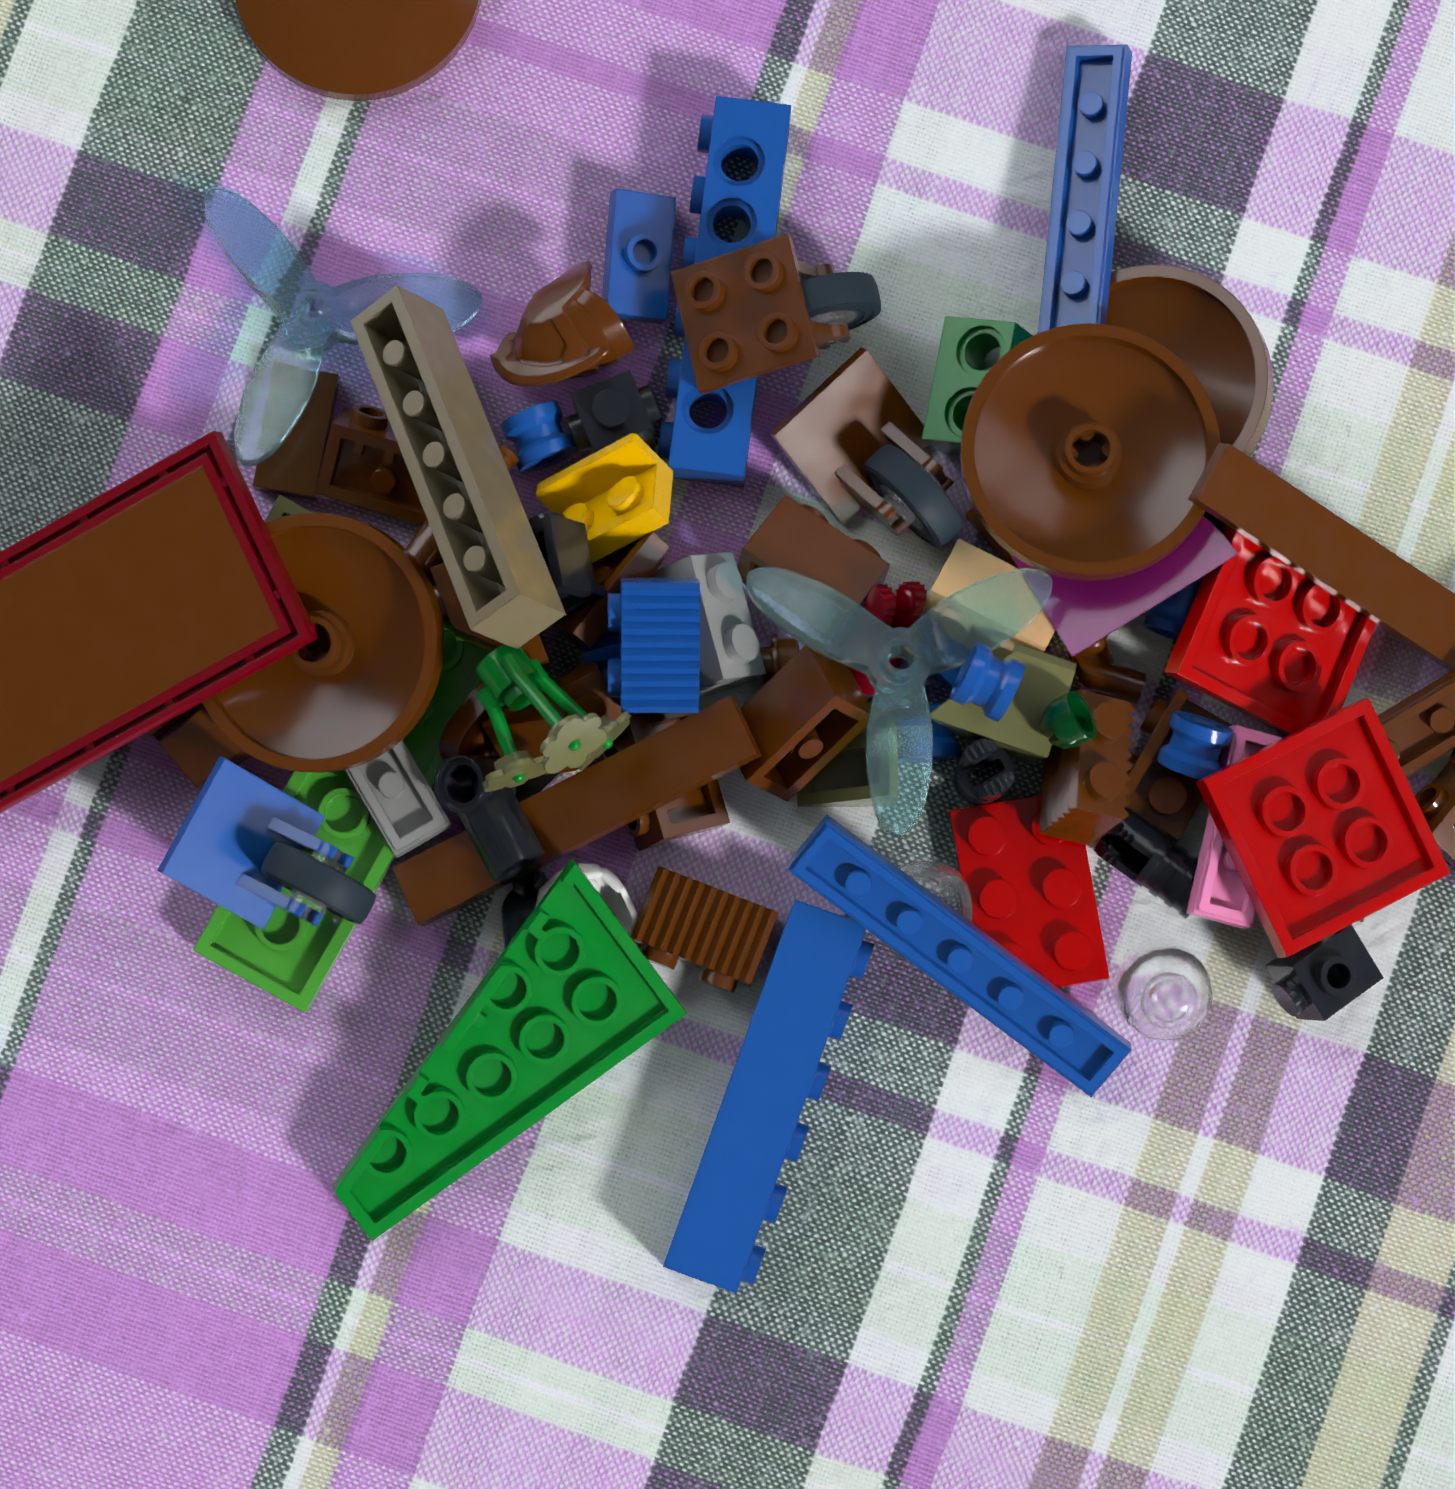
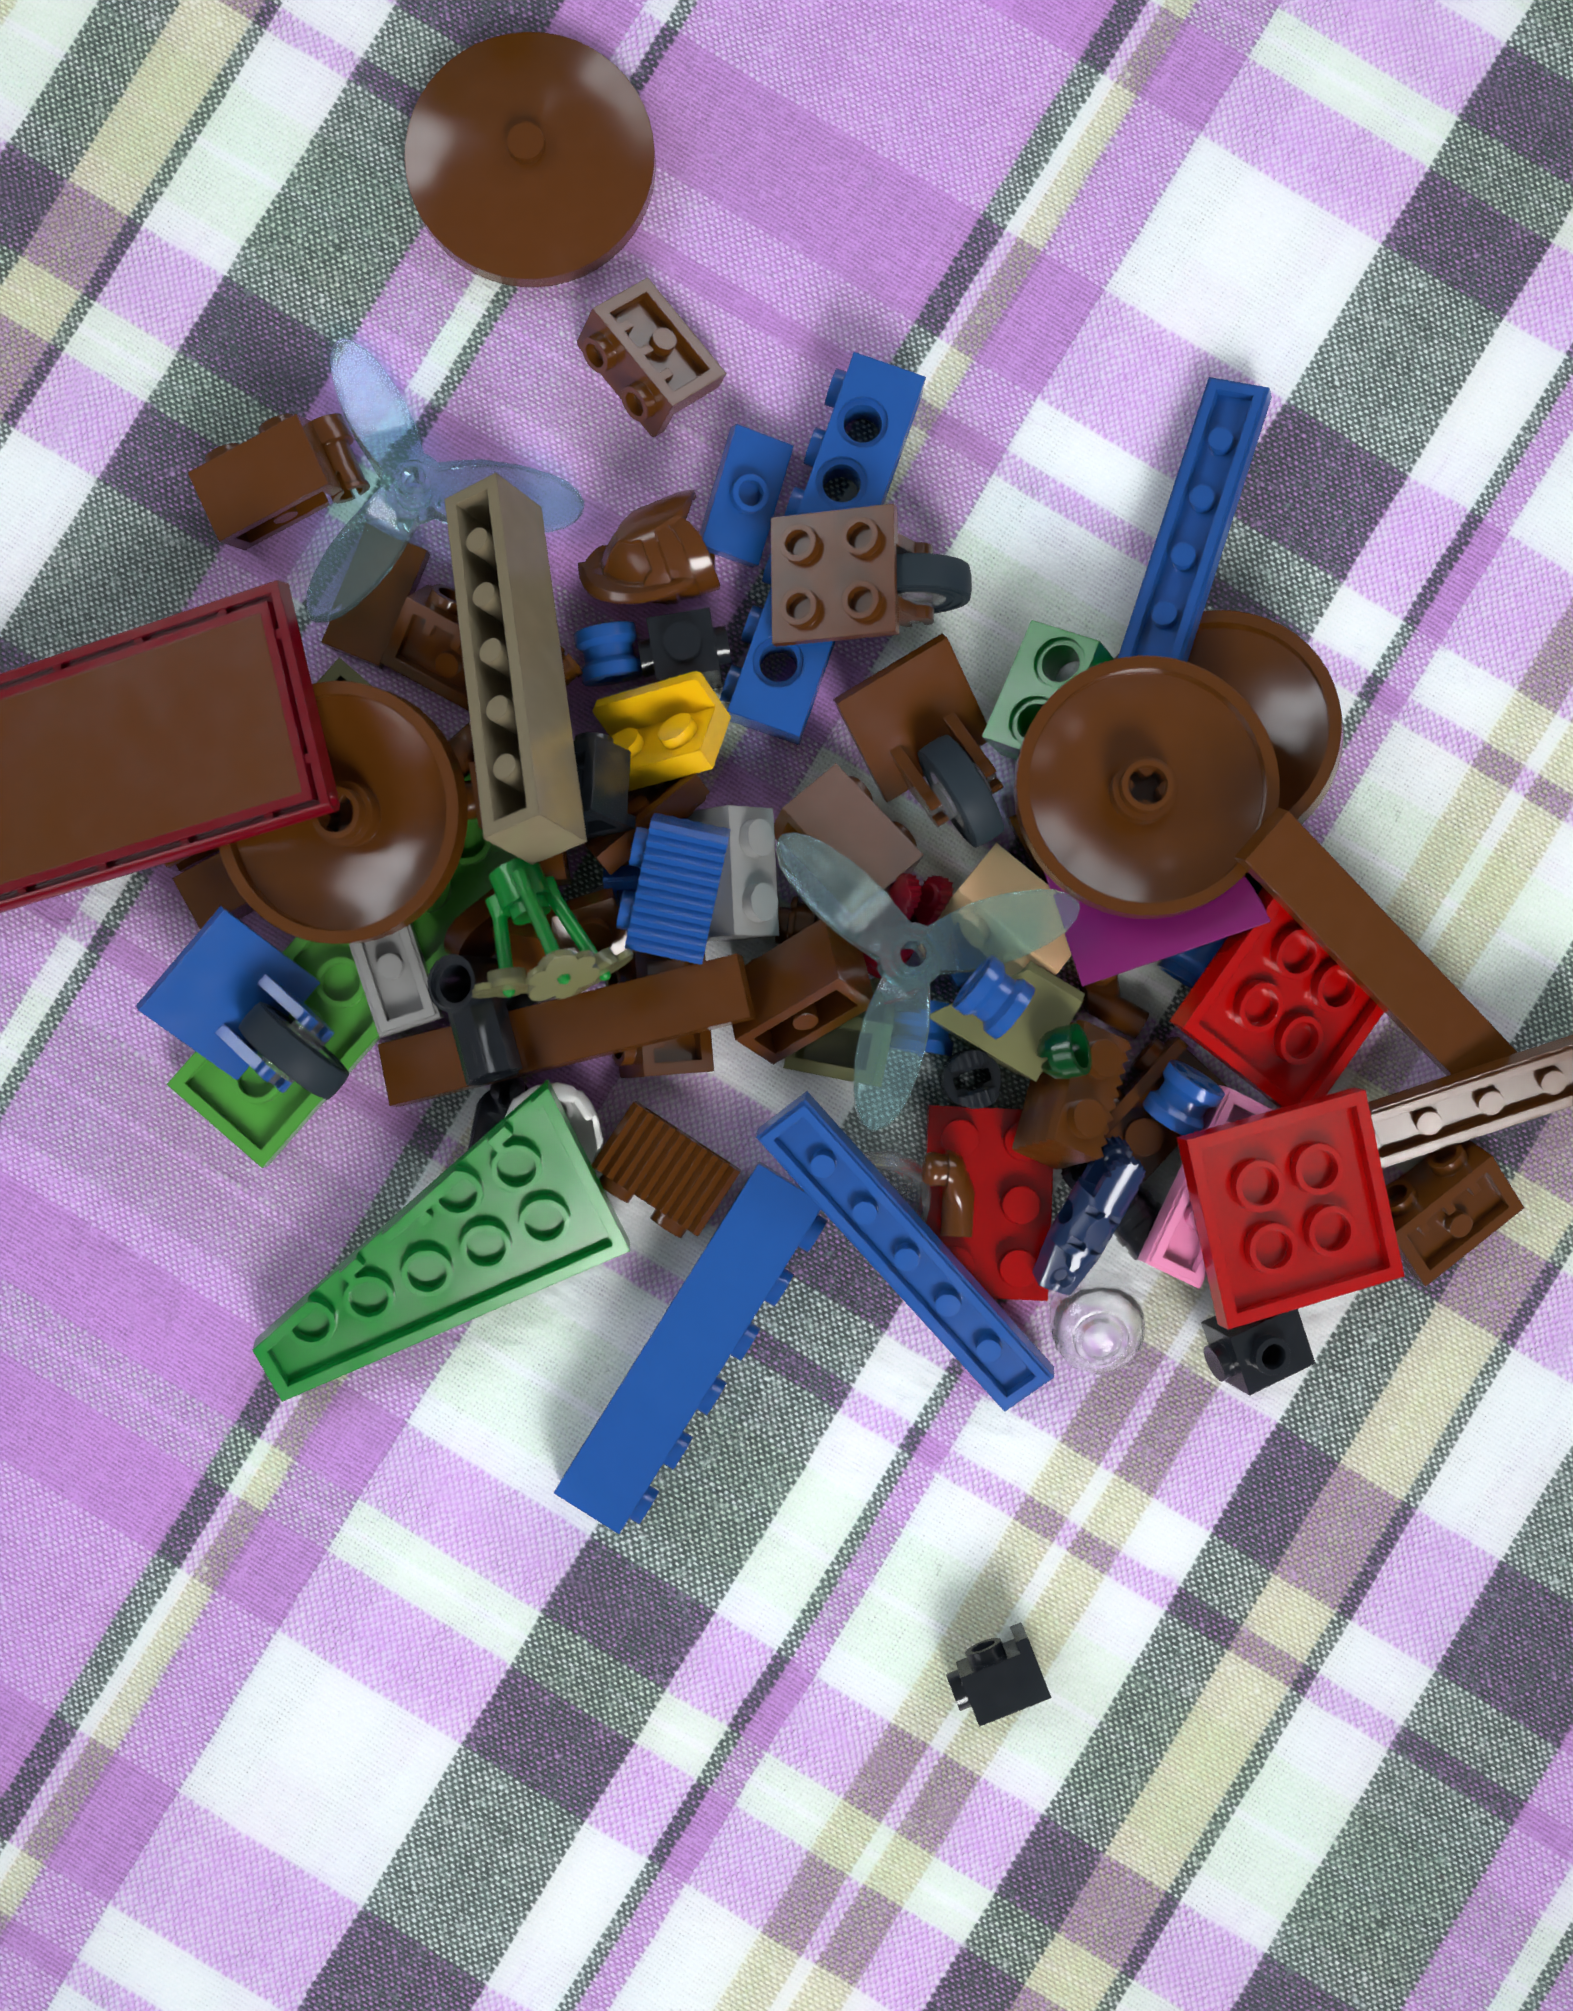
camera: 10 degrees right, 5 degrees up
(178, 334) = (277, 477): none -> reddish brown hinge
(515, 141) = (648, 355): none -> bracket
(995, 884) = (957, 1191): none -> reddish brown arm
(1129, 882) = (1089, 1218): none -> dark blue hinge
(1143, 1359) = (998, 1678): none -> black brick

